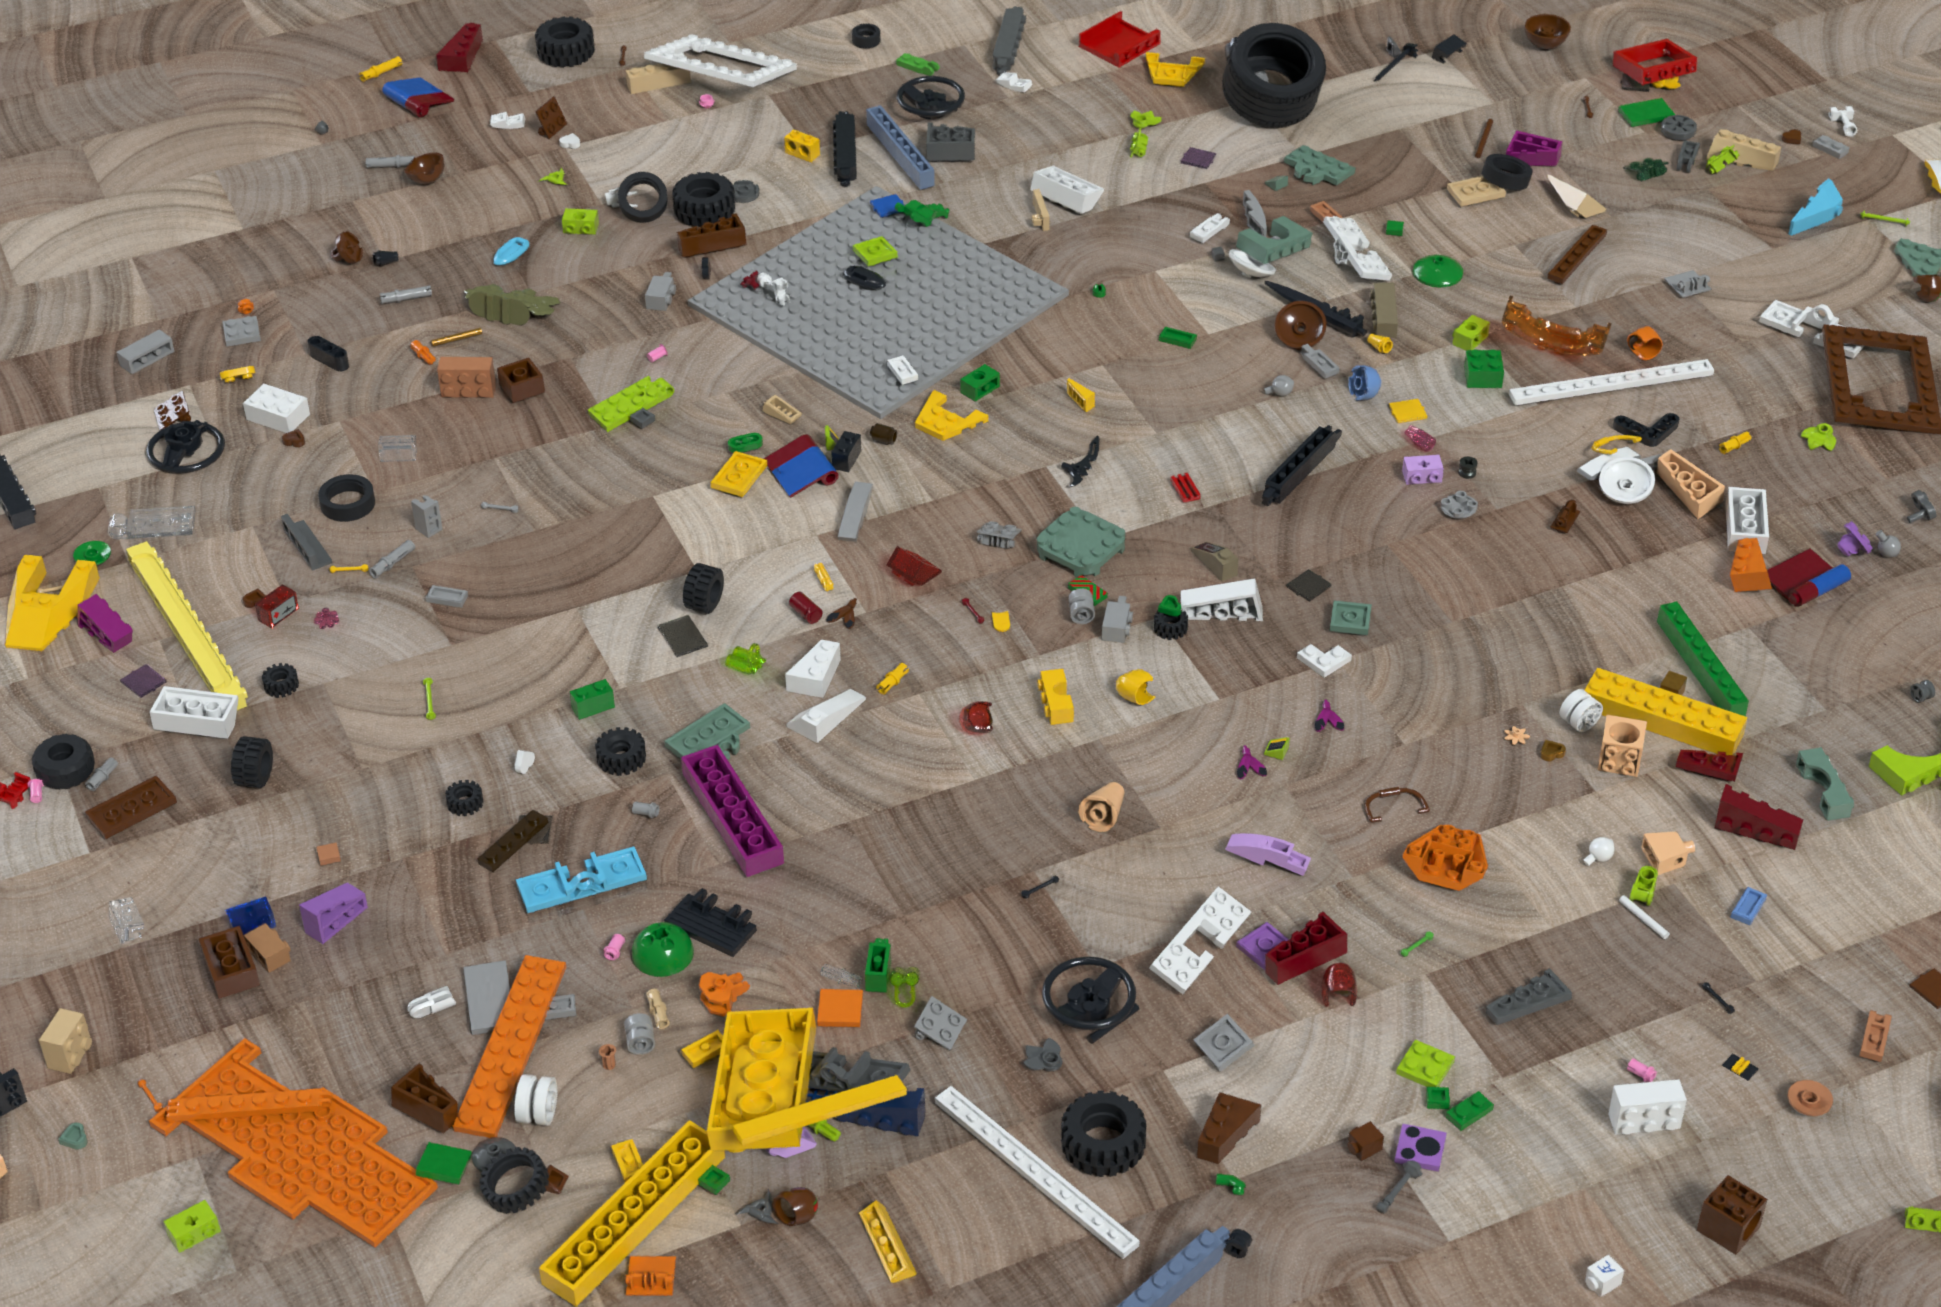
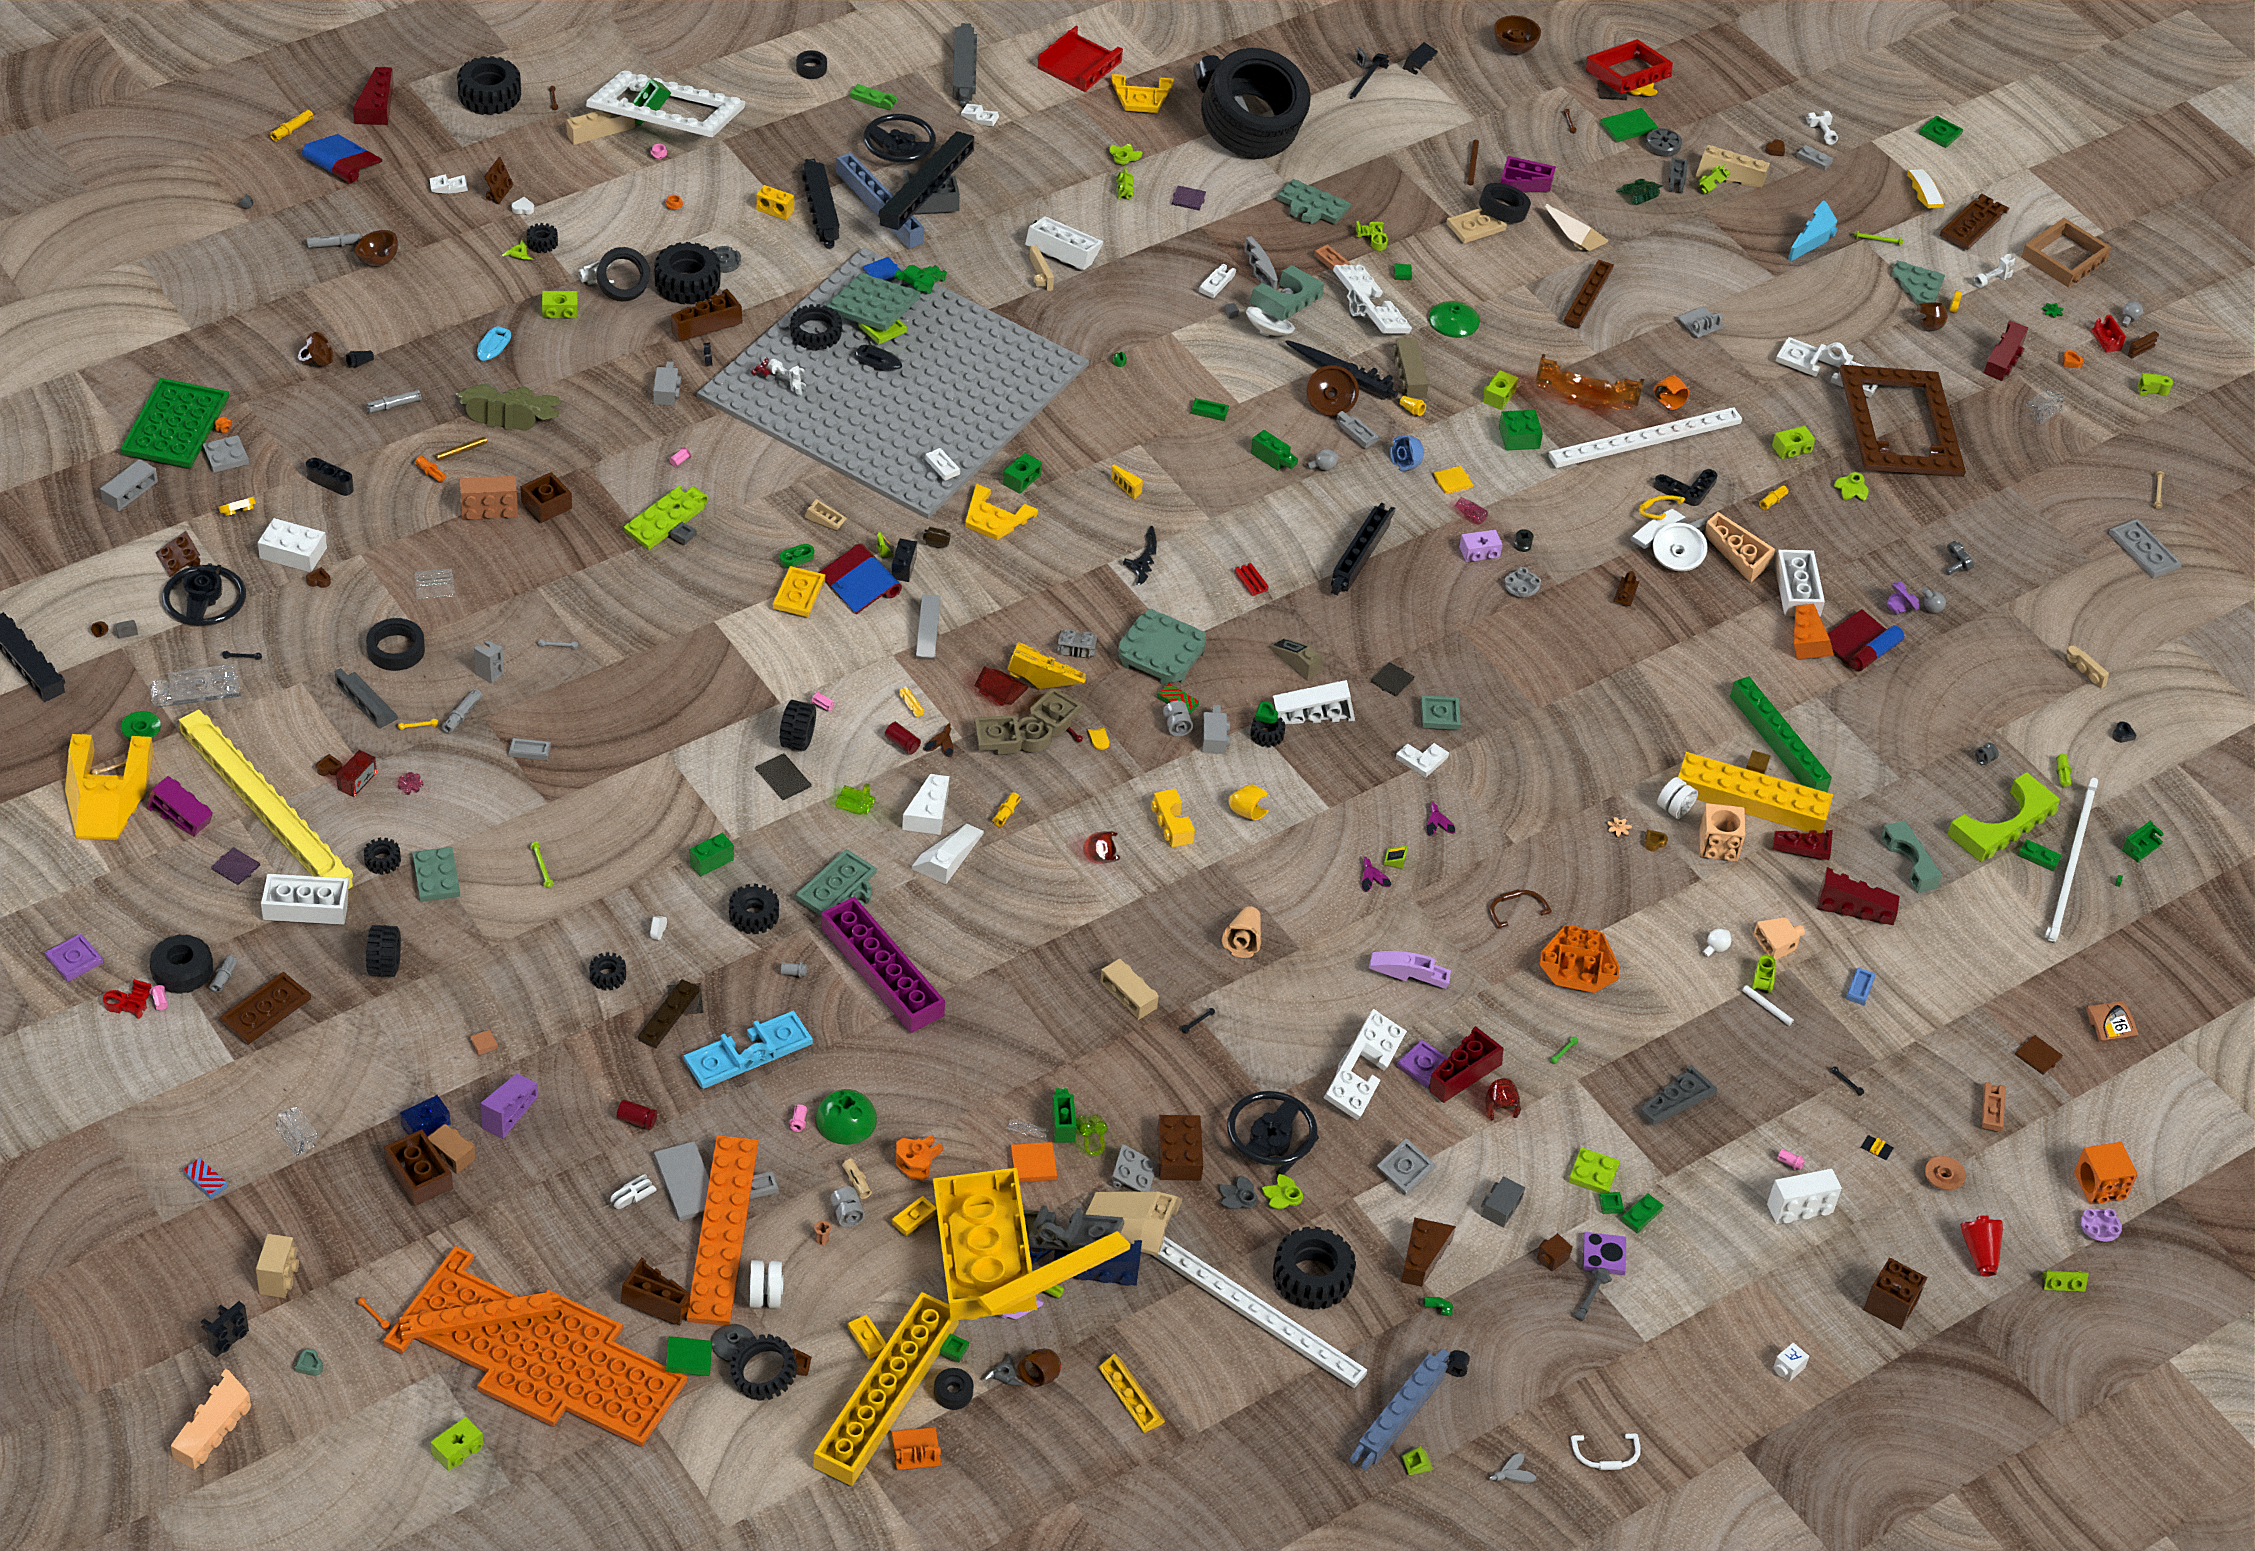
camera: 15 degrees left, 5 degrees up
(28, 956) = (205, 1178): none -> tile
(82, 469) = (97, 628): none -> reddish brown hinge
(106, 471) = (126, 628): none -> flat silver slope
(191, 498) = (226, 654): none -> black hinge
(203, 303) = (175, 423): none -> green plate
(327, 700) = (436, 874): none -> sand green plate
(455, 930) = (636, 1114): none -> dark red piece
(579, 166) = (542, 237): none -> black tyre
(703, 1208) = (952, 1400): none -> black tyre
(707, 52) = (652, 96): none -> green hinge
(709, 142) = (674, 202): none -> orange plate
(713, 928) = (891, 1088): black hinge -> none
(737, 571) = (823, 701): none -> bright pink piece
(811, 259) = (816, 340): none -> black tyre
(870, 229) = (873, 301): none -> sand green plate
(933, 1066) = (1143, 1213): none -> tan wedge
(944, 129) = (926, 180): none -> black brick
(951, 600) = (1047, 719): none -> dark tan plate
(954, 554) = (1042, 670): none -> yellow wedge
(975, 851) = (1129, 988): none -> tan brick
(991, 1005) = (1180, 1147): none -> reddish brown brick
(1090, 1060) = (1283, 1193): none -> lime plate
(1230, 375) = (1272, 451): none -> green hinge
(1277, 182) = (1275, 223): sand green slope -> none
(1320, 1086) = (1503, 1201): none -> dark grey brick
(1376, 199) = (1375, 233): none -> lime piece
(1764, 393) = (1793, 442): none -> lime brick
(1841, 1171) = (1984, 1243): none -> red cone

